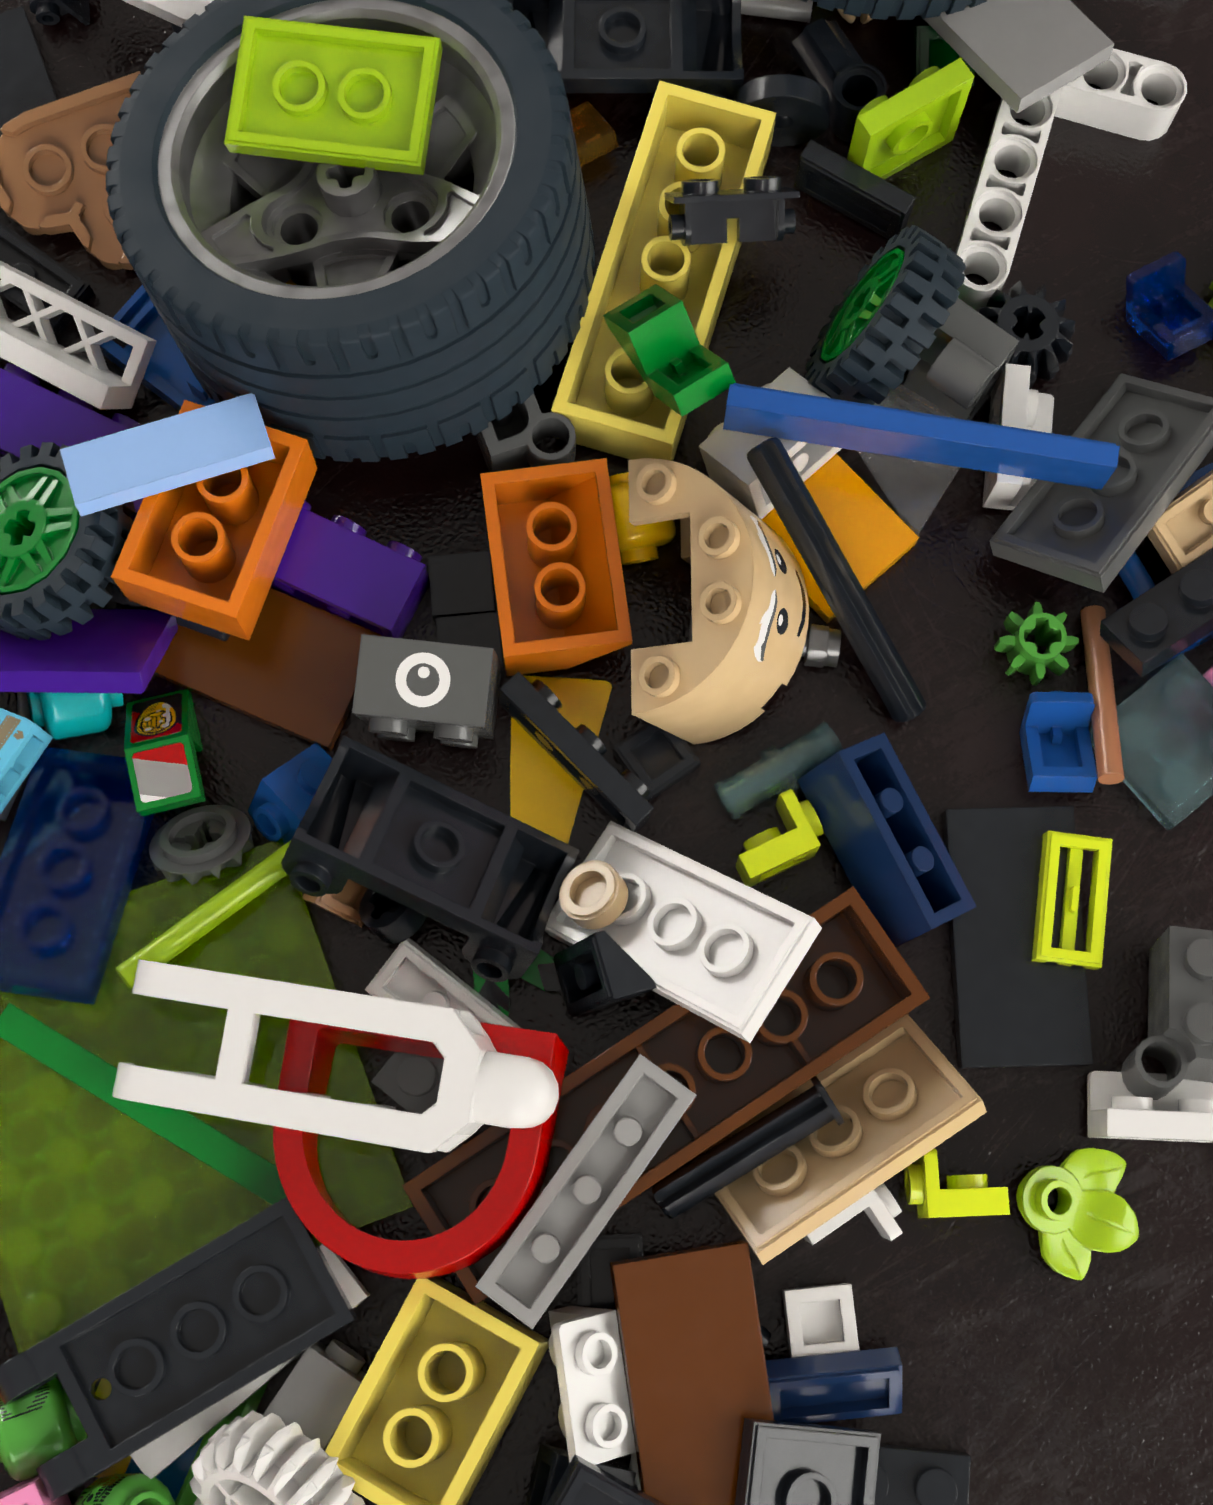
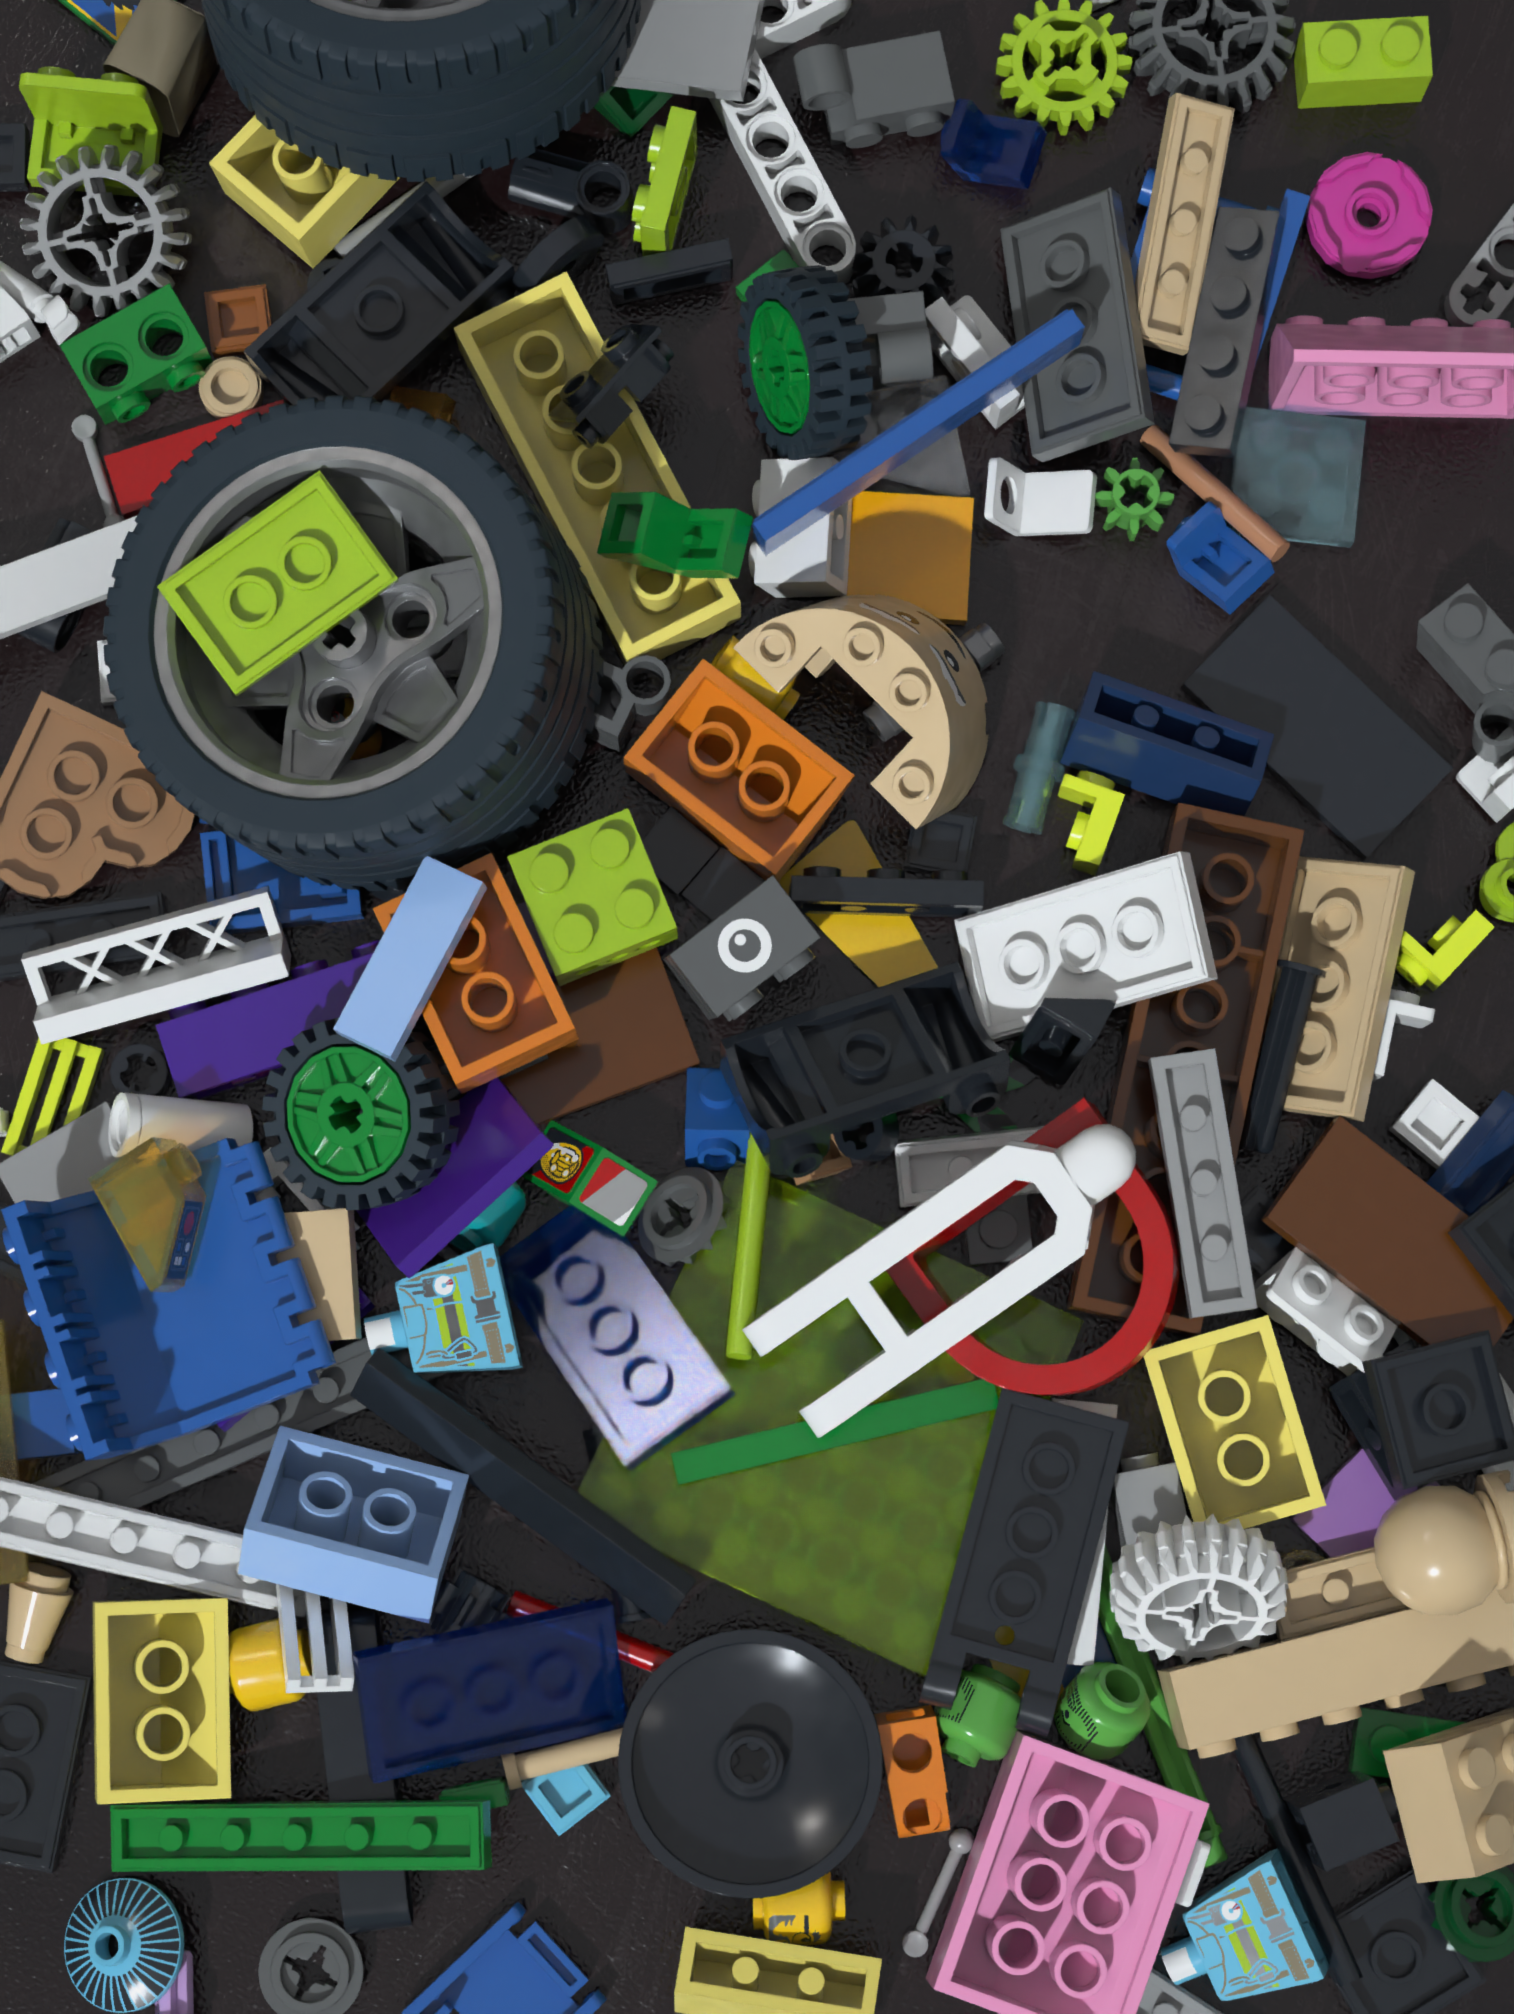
camera: 45 degrees left, 5 degrees up
(355, 547) = (593, 897): none -> lime piece
(593, 894) = (1000, 983): tan tile -> none
(836, 579) = (951, 590): black axle -> none
(963, 583) = (1040, 500): none -> white bracket
(1046, 898) = (1312, 678): neon yellow tile -> none
(1123, 195) = (877, 88): none -> dark grey hinge

